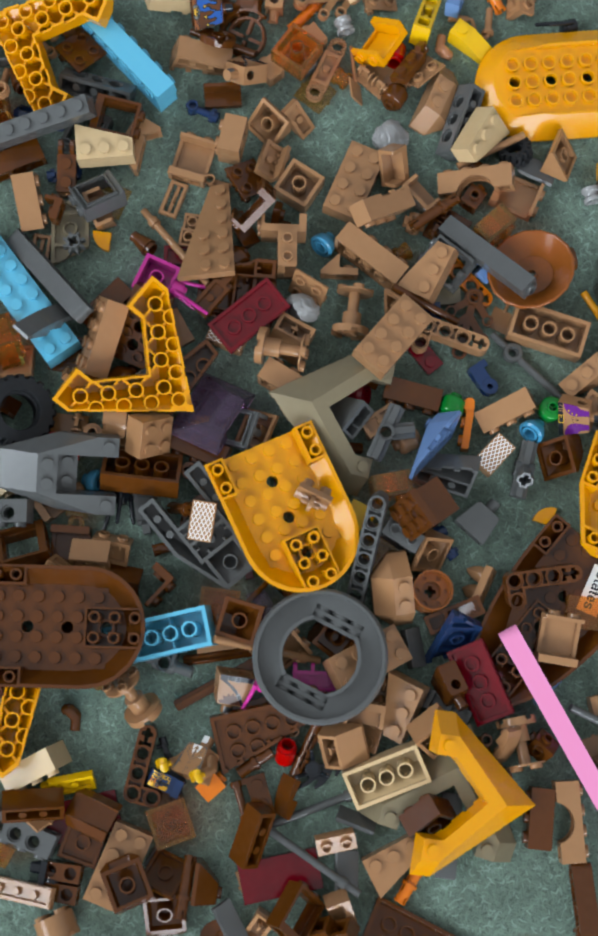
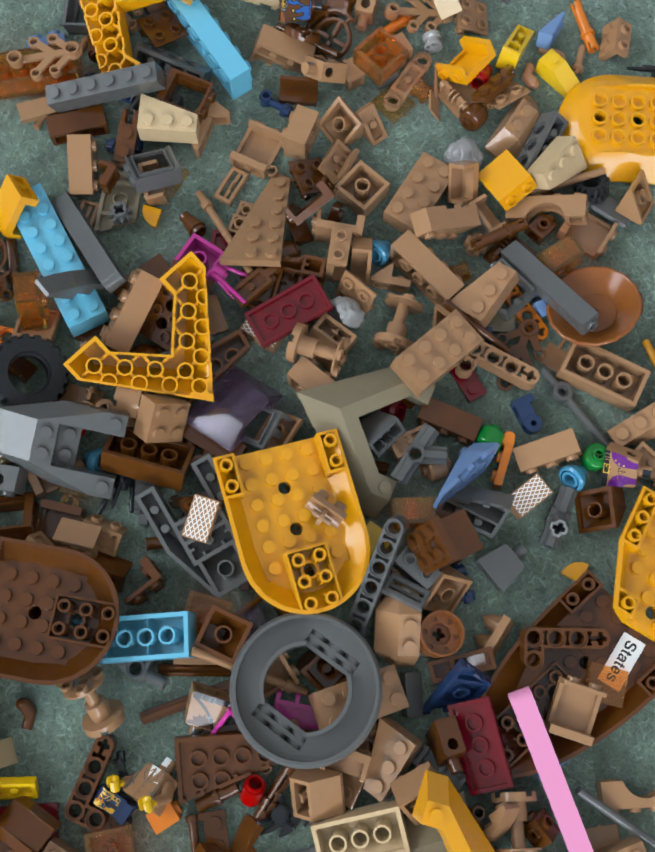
camera: 10 degrees right, 5 degrees down
(309, 254) = (361, 258): none -> medium nougat panel
(388, 563) = (403, 599): none -> dark grey tile
(434, 158) = (507, 180): none -> light orange panel

